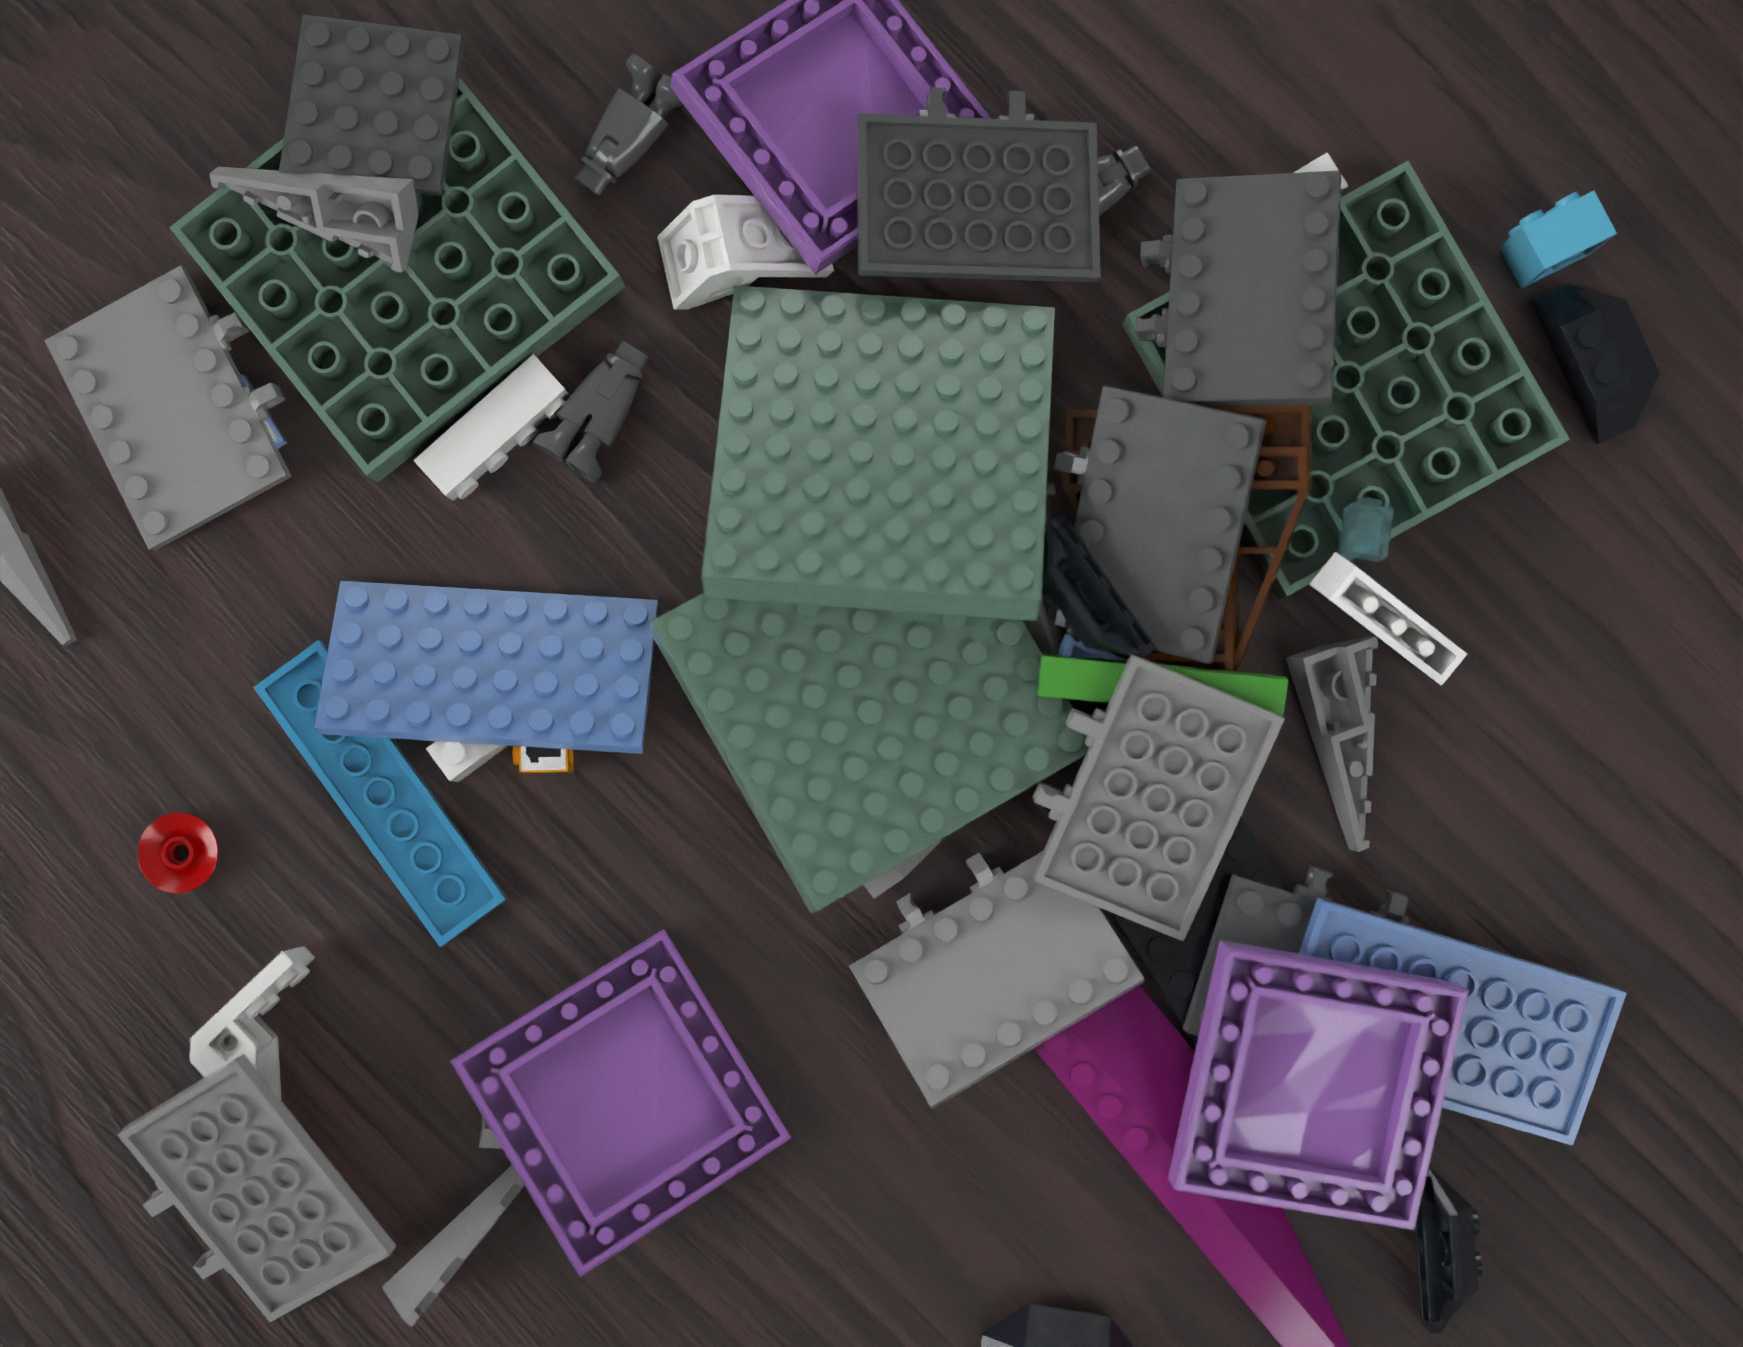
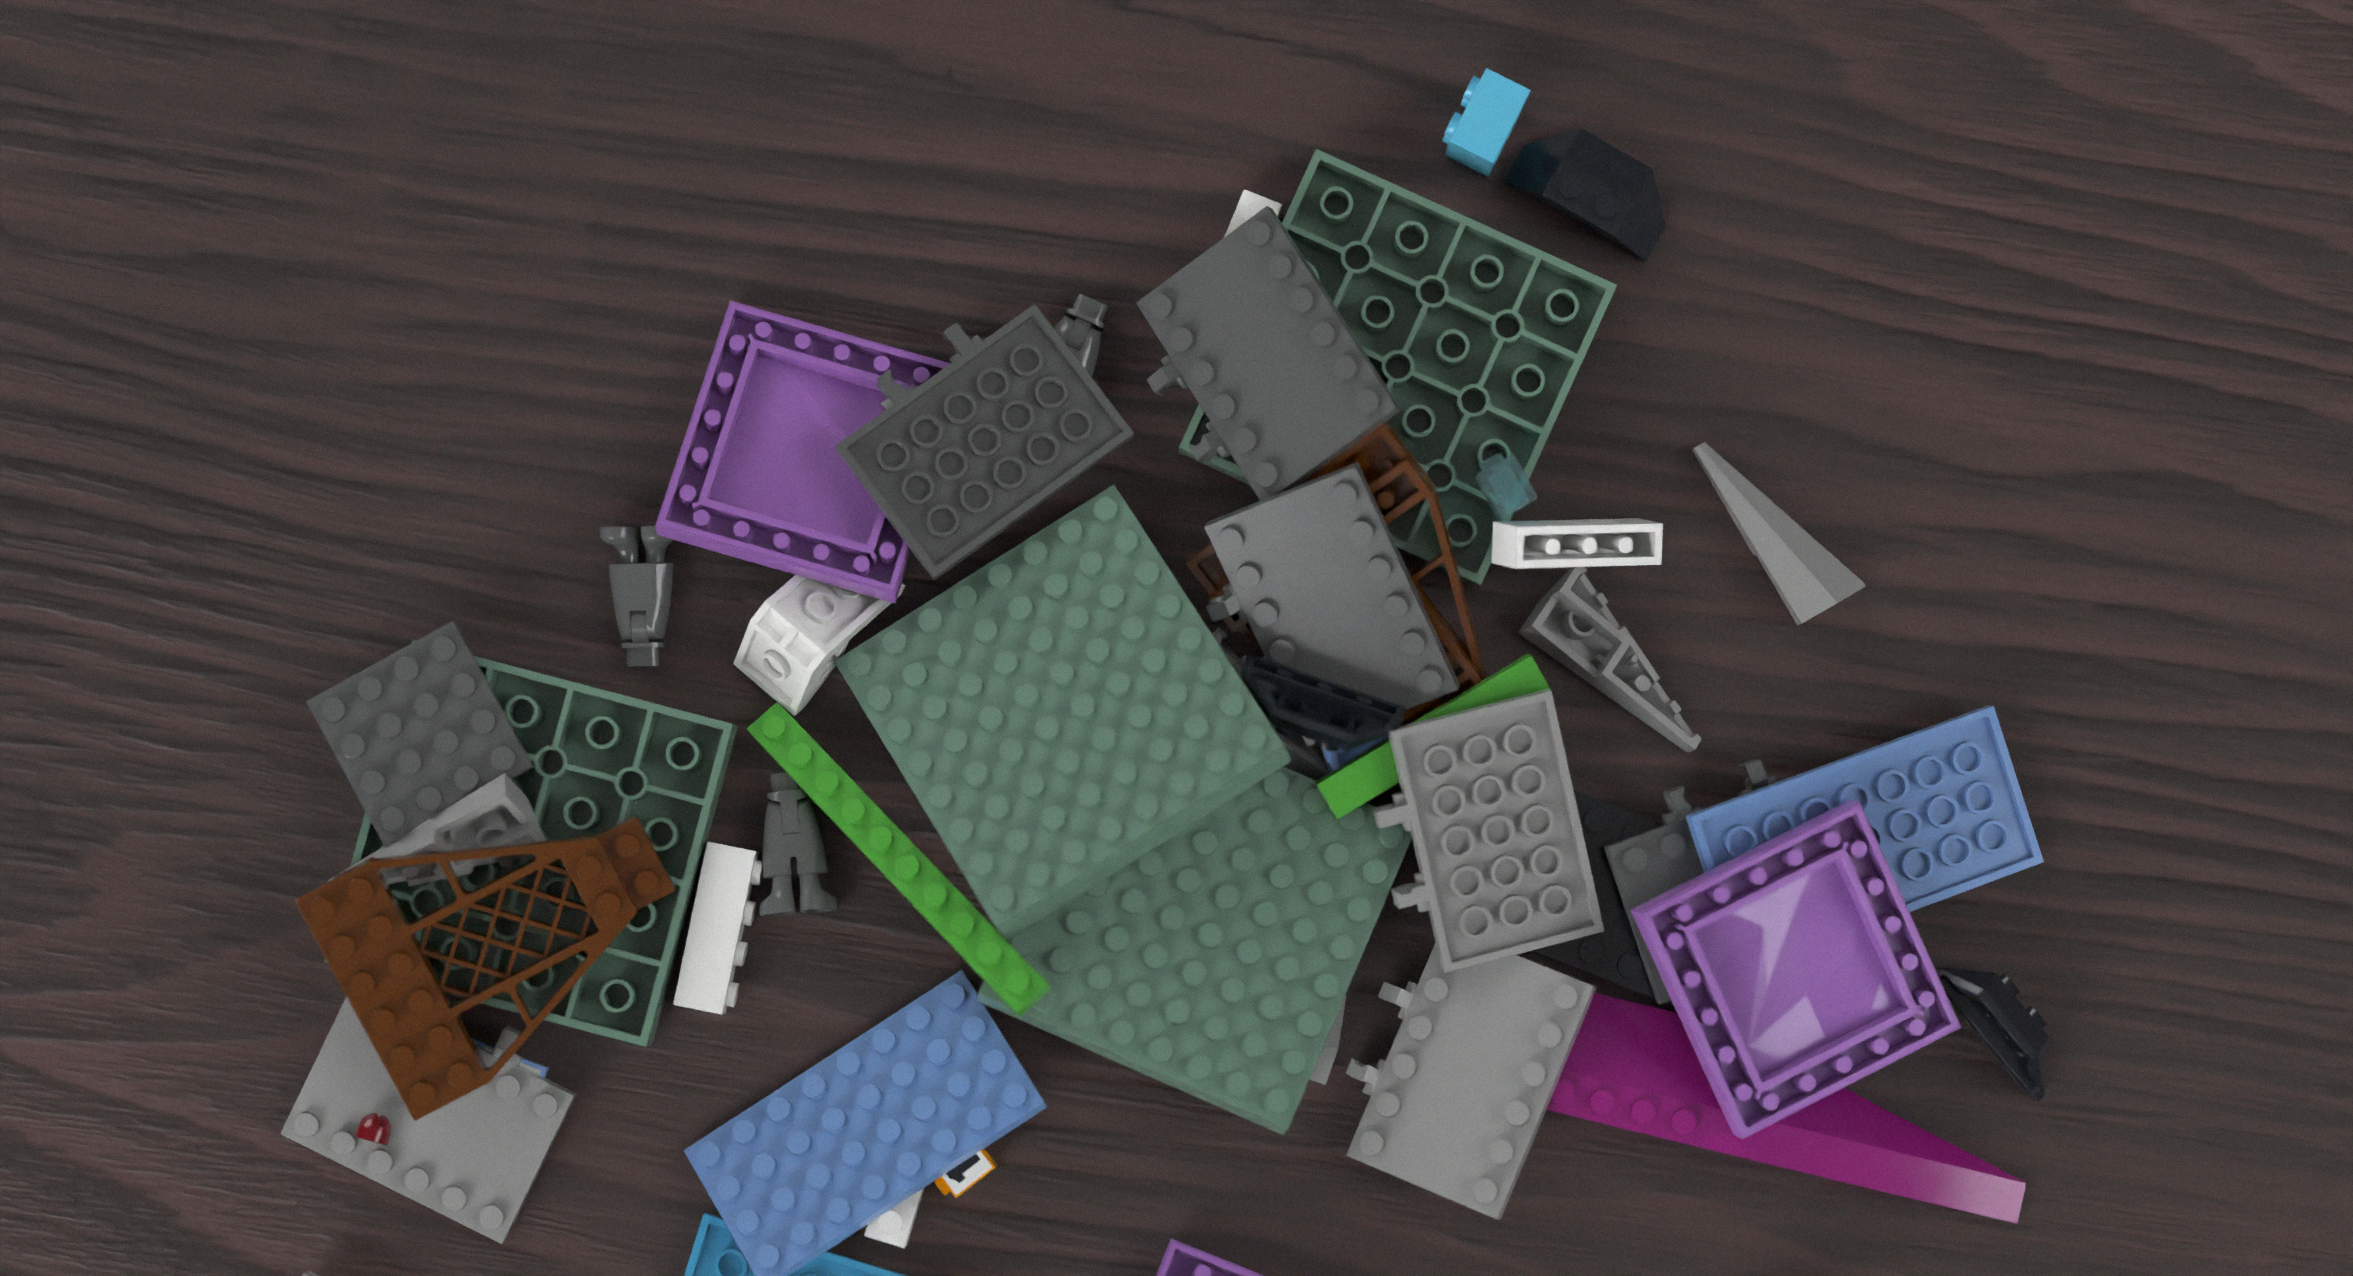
camera: 40 degrees left, 0 degrees up
(110, 388) = (374, 1129): none -> dark red hinge
(206, 282) = (396, 986): none -> reddish brown wing
(669, 477) = (899, 860): none -> bright green plate
(1545, 765) = (1797, 564): none -> light grey wedge

